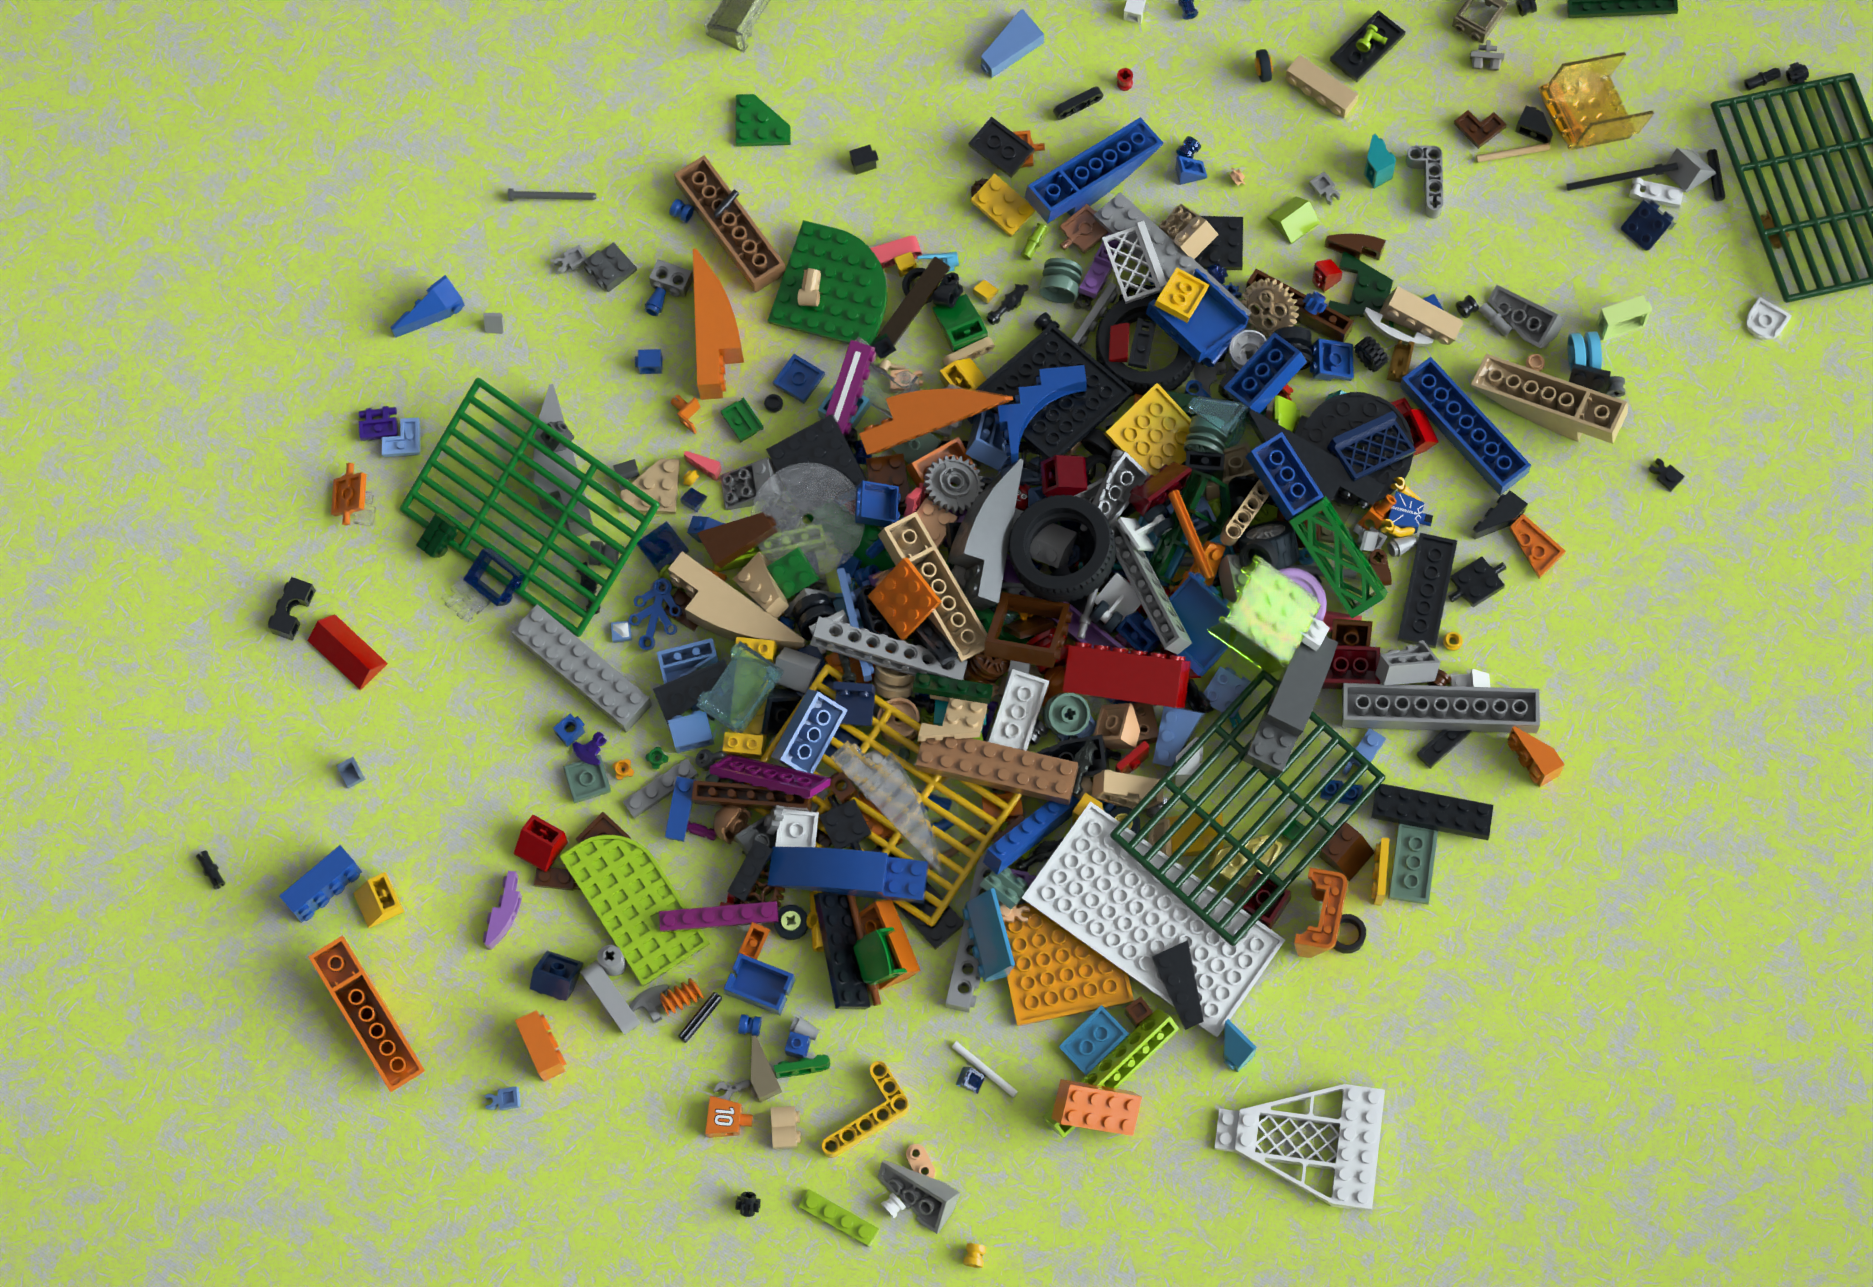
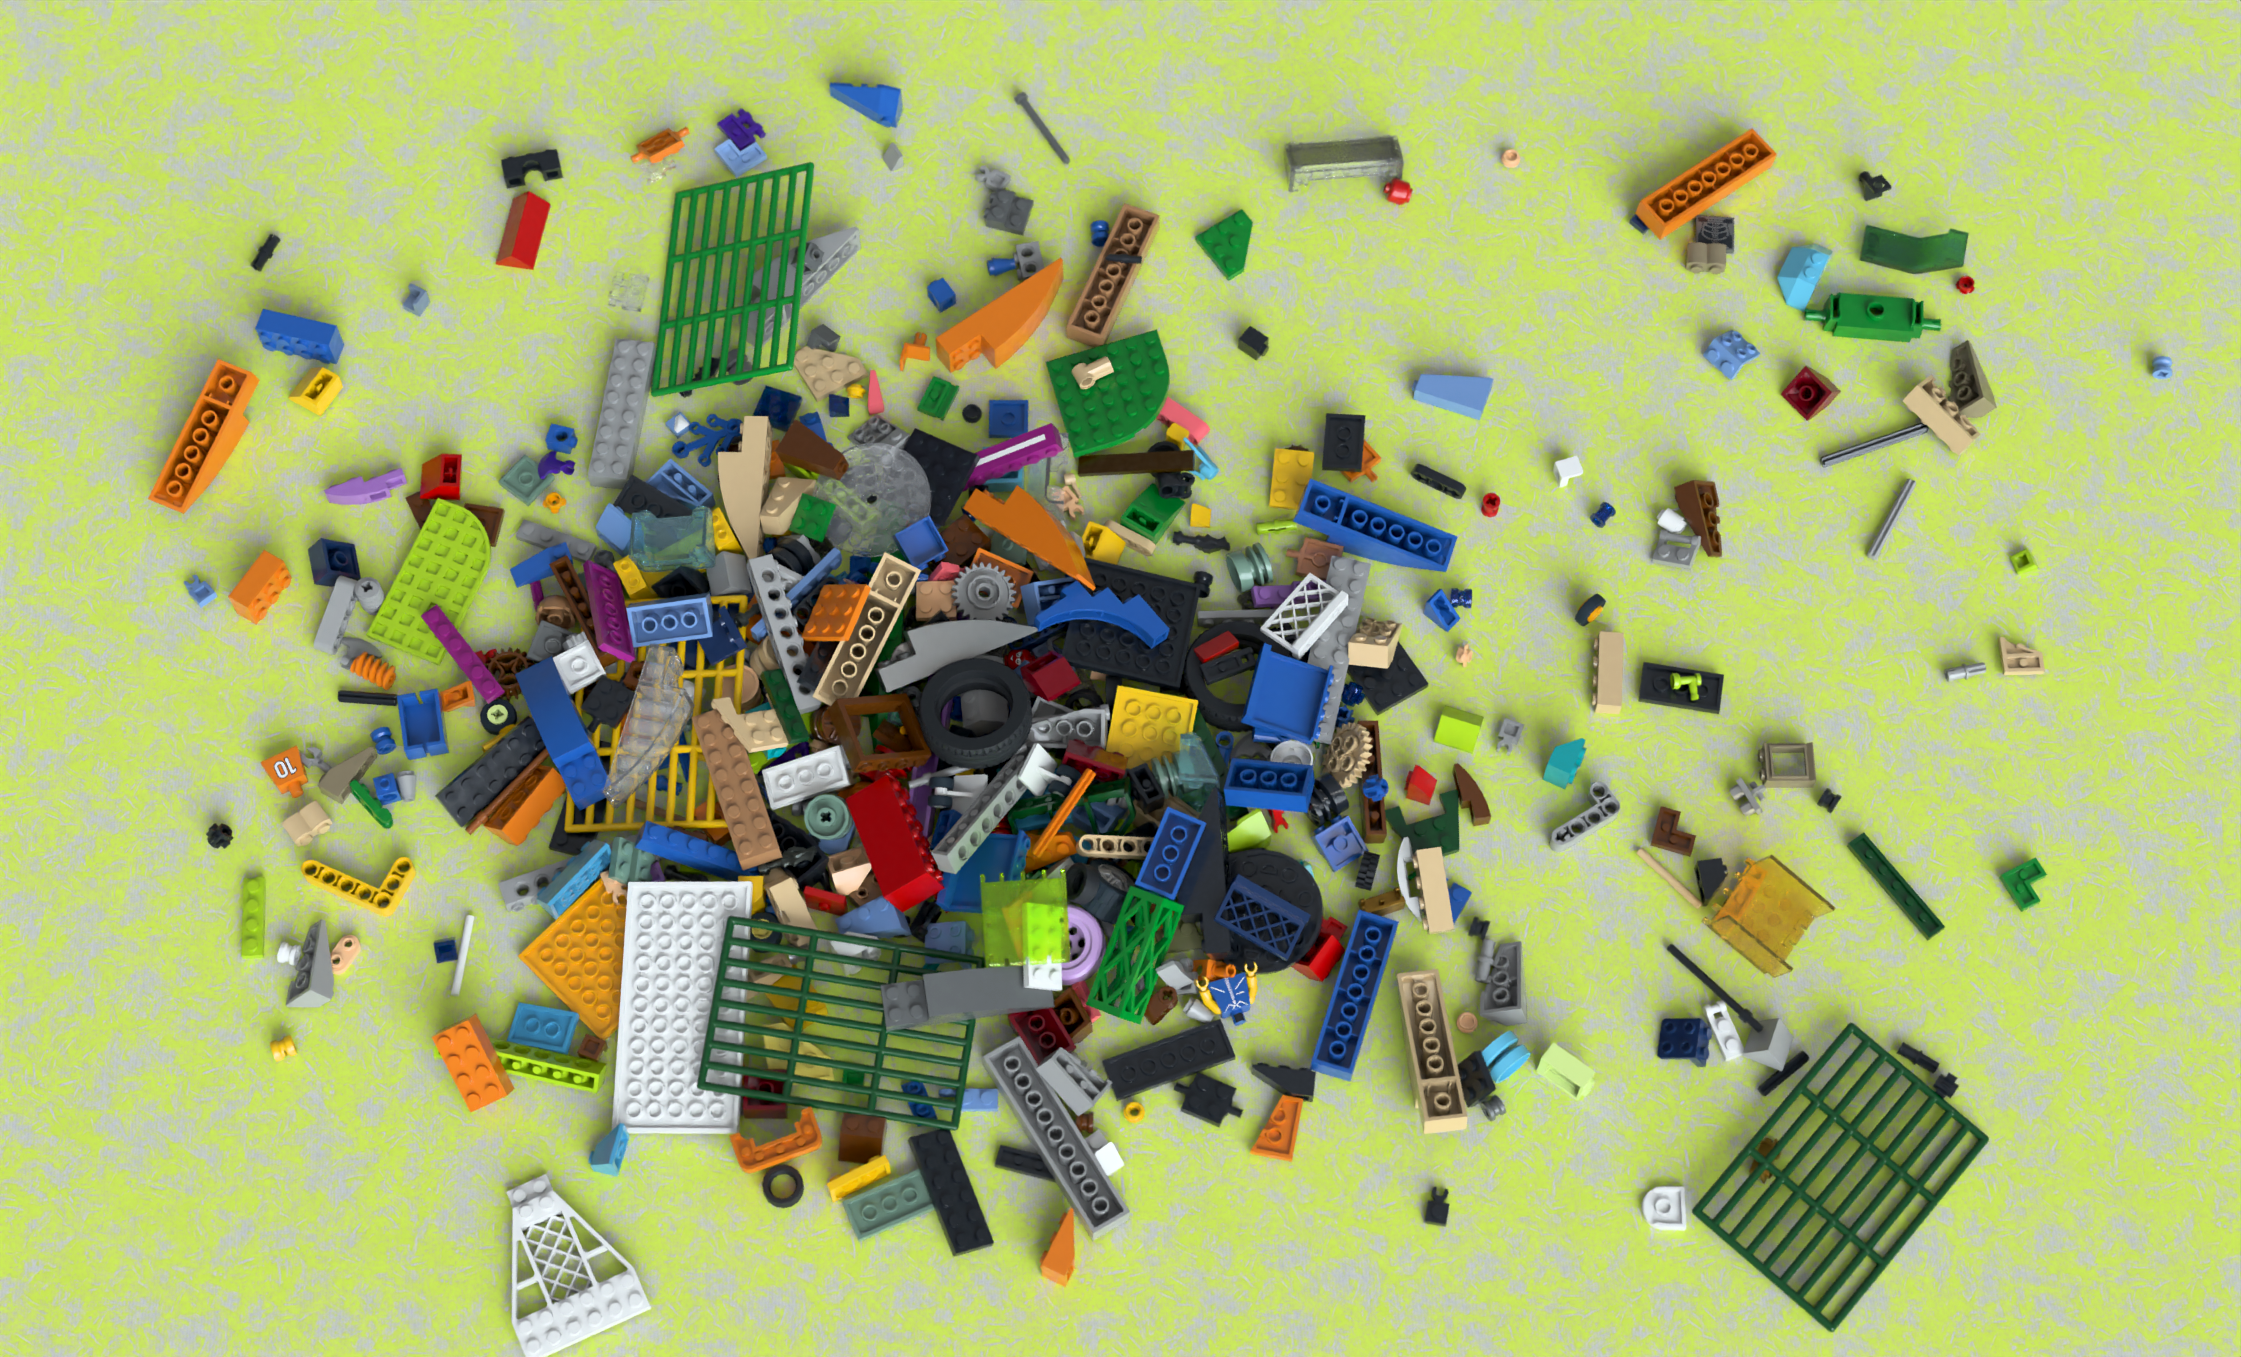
camera: 50 degrees right, 5 degrees down
(437, 536) = (667, 232): dark green brick -> none
(479, 566) = (653, 281): clear blue window -> none
(656, 752) = (581, 516): green plate -> none
(750, 870) = (517, 651): black plate -> none
(875, 958) = (501, 799): green piece -> none
(883, 346) = (1083, 464): black plate -> none
(1179, 980) = (640, 1062): black wing -> none
(1181, 295) = (1293, 666): yellow plate -> none

